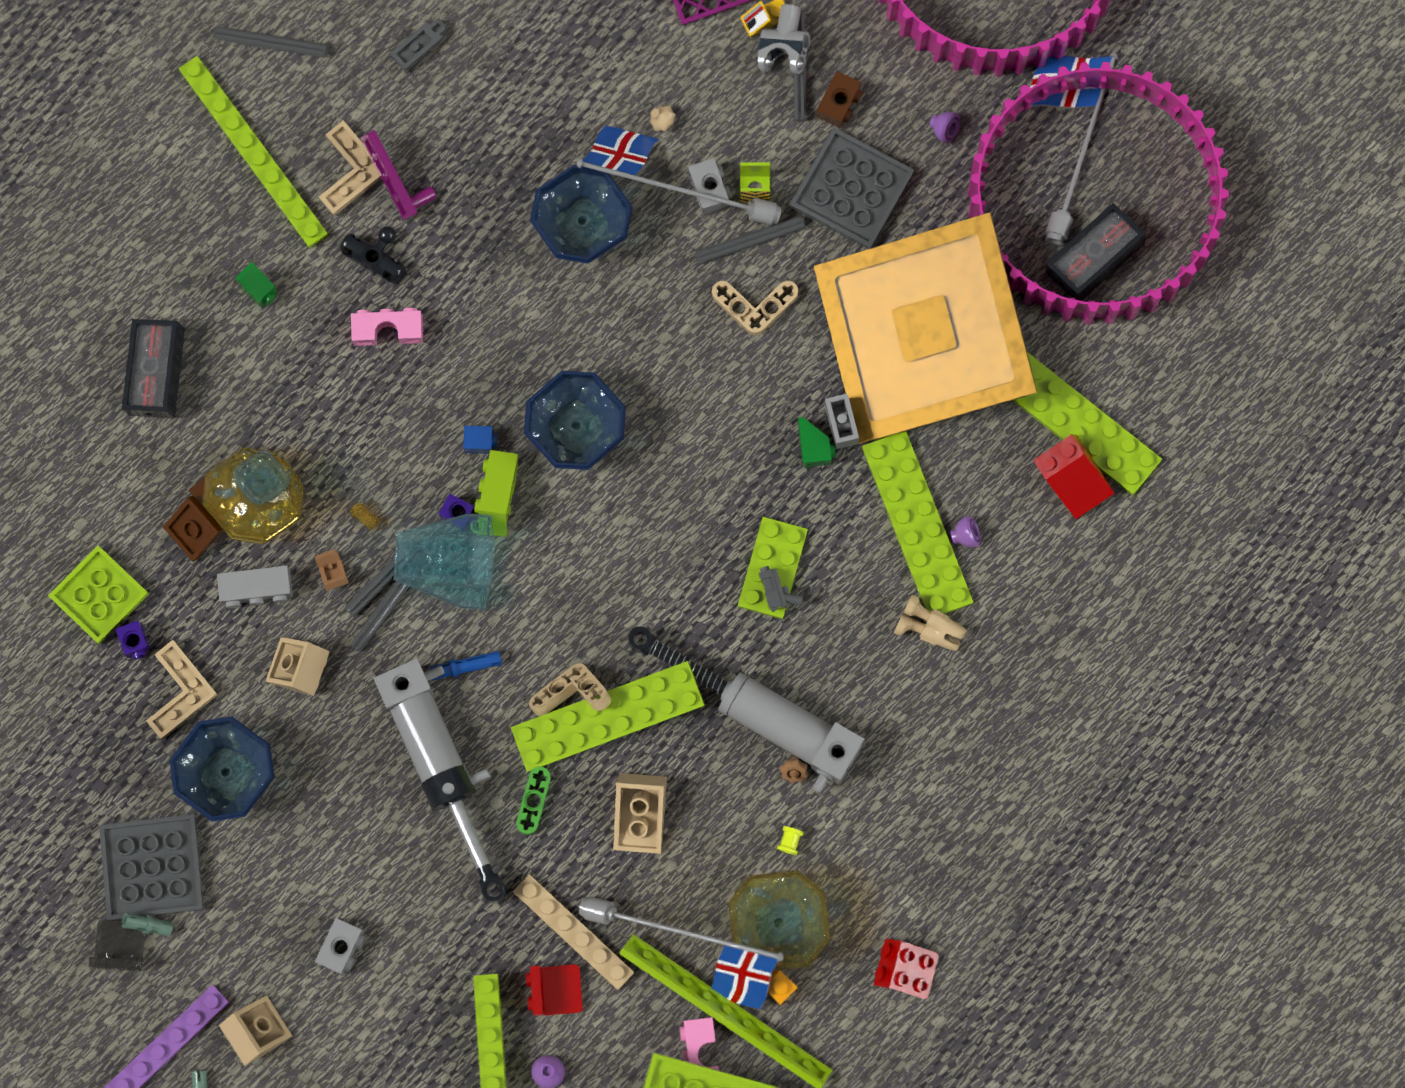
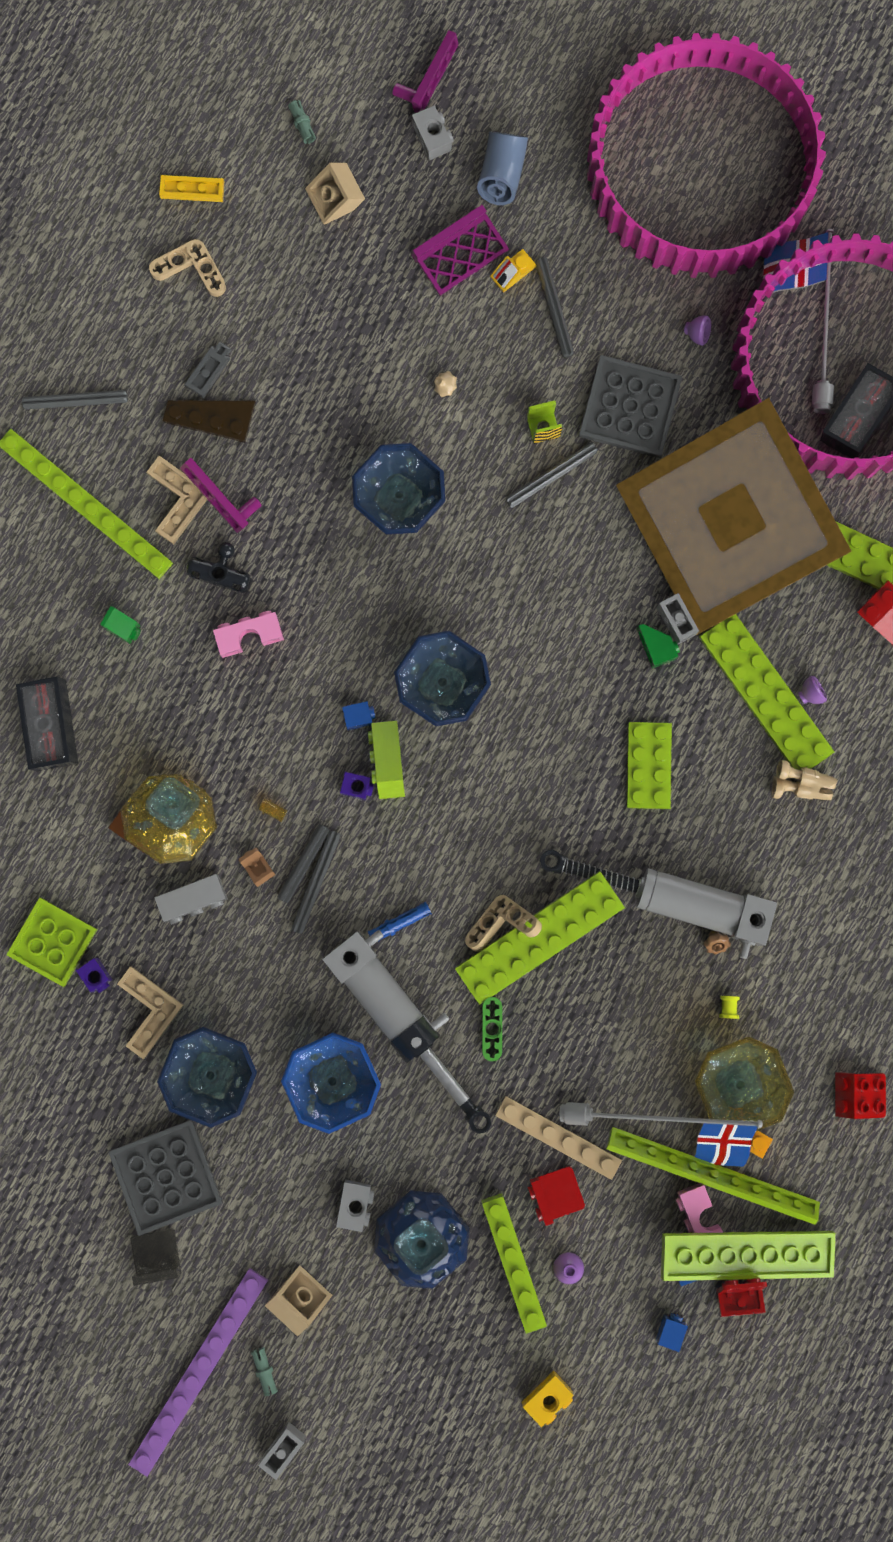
camera: 20 degrees left, 5 degrees up
(147, 924) = (175, 1231): sand green pin -> none
(192, 528) = (121, 861): reddish brown plate -> none
(297, 666) = (249, 962): tan slope -> none
(329, 794) = (327, 1105): none -> clear light blue rock
(412, 95) = (216, 418): none -> dark brown wing
(424, 1004) = (425, 1218): none -> dark blue rock
(449, 559) = (360, 832): clear light blue wedge -> none
(625, 155) = (423, 424): flag -> none
(639, 813) = (590, 1016): tan slope -> none
(709, 172) = (506, 447): light grey brick -> none
(750, 312) = (570, 540): tan beam -> none
(776, 596) = (660, 790): dark grey piece -> none
(784, 40) = (537, 287): light grey connector -> none
(843, 87) = (599, 317): reddish brown brick -> none

